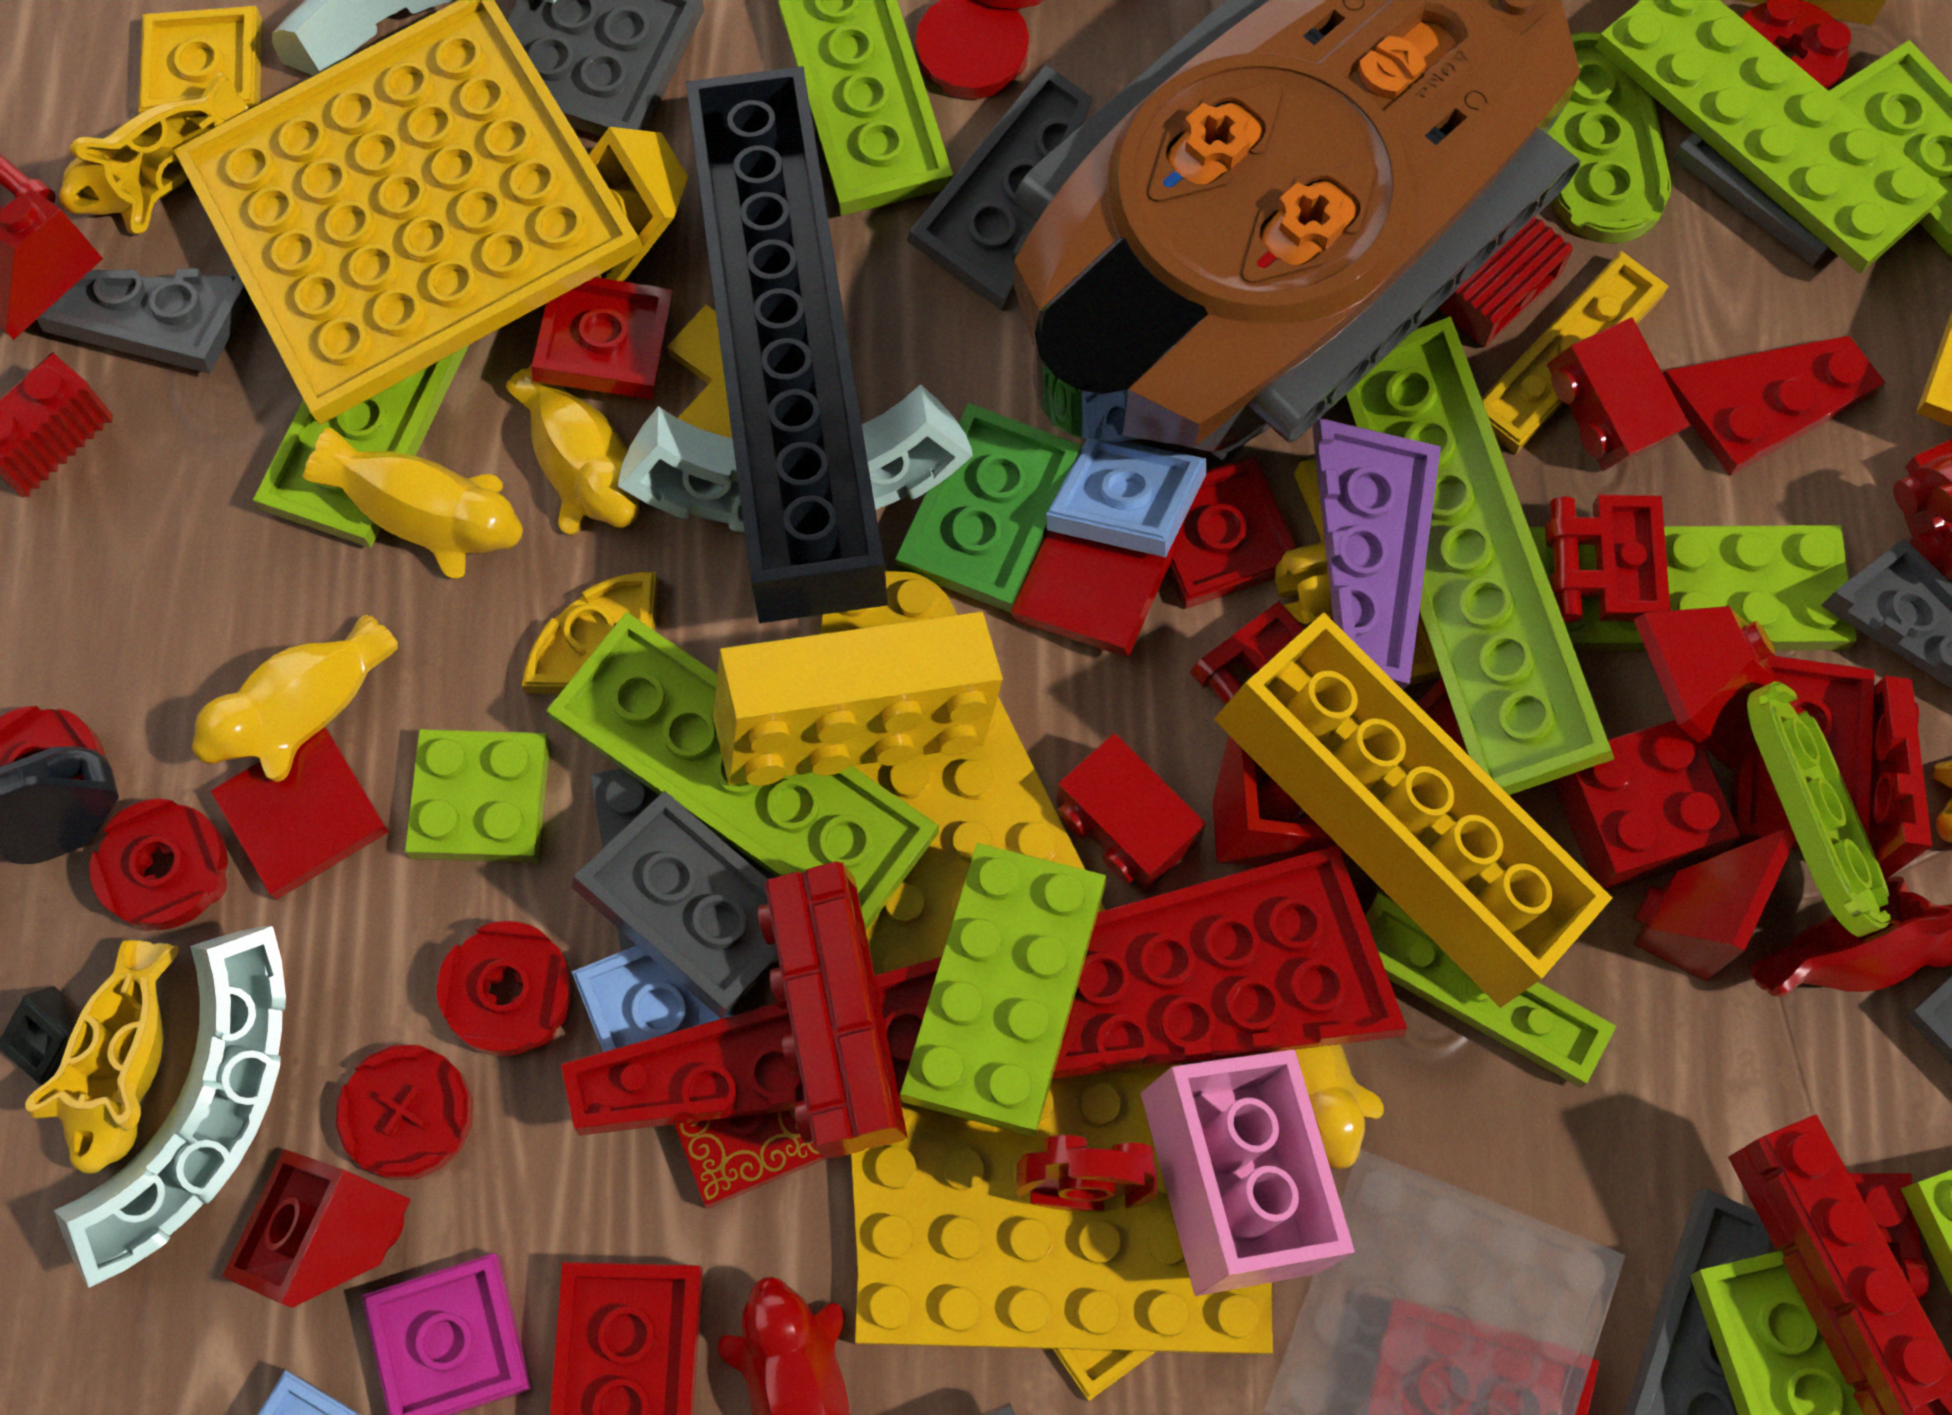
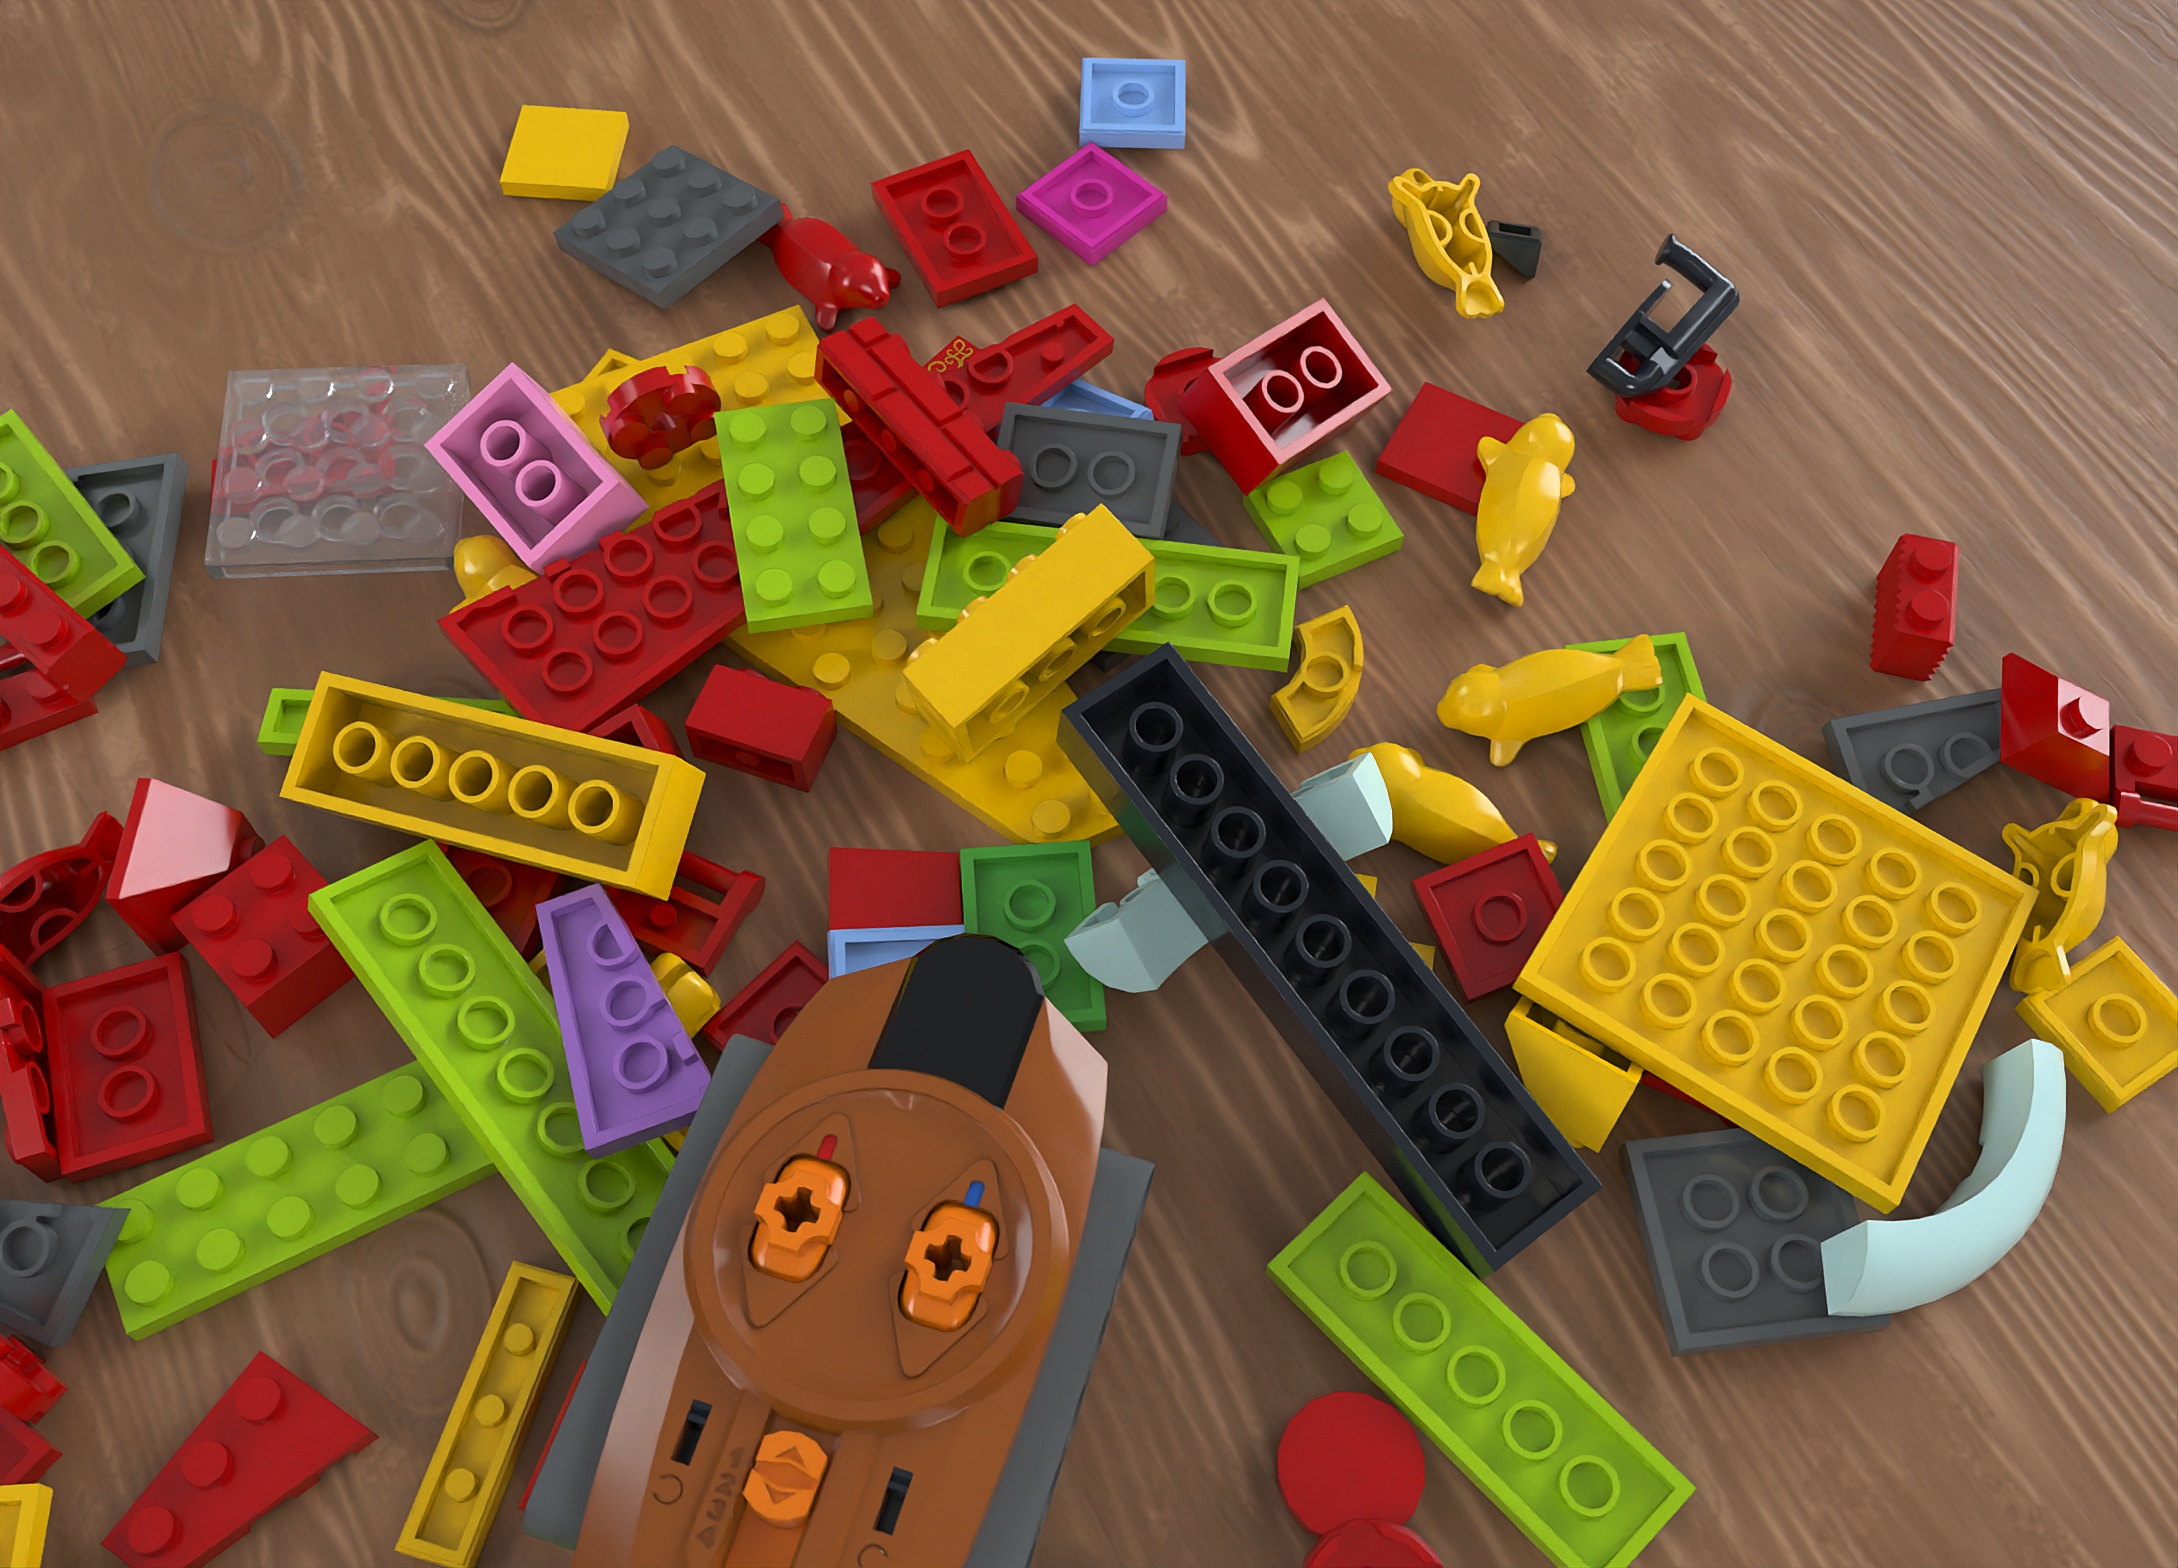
camera: 150 degrees right, 10 degrees down
(192, 880) = (1519, 391): red plate -> none
(209, 1122) = (1349, 224): light aqua brick -> none
(314, 1230) = (1223, 207): red slope -> none
(404, 1112) = (1219, 306): red tile -> none
(436, 899) = (1283, 395): none -> red brick
(974, 221) = (1206, 1278): dark grey wing -> none
(1616, 394) = (415, 1349): red brick -> none
(1628, 551) = (350, 1152): red plate -> none
(1707, 670) = (237, 1056): red slope -> none
(1819, 810) = (94, 963): lime tile -> none

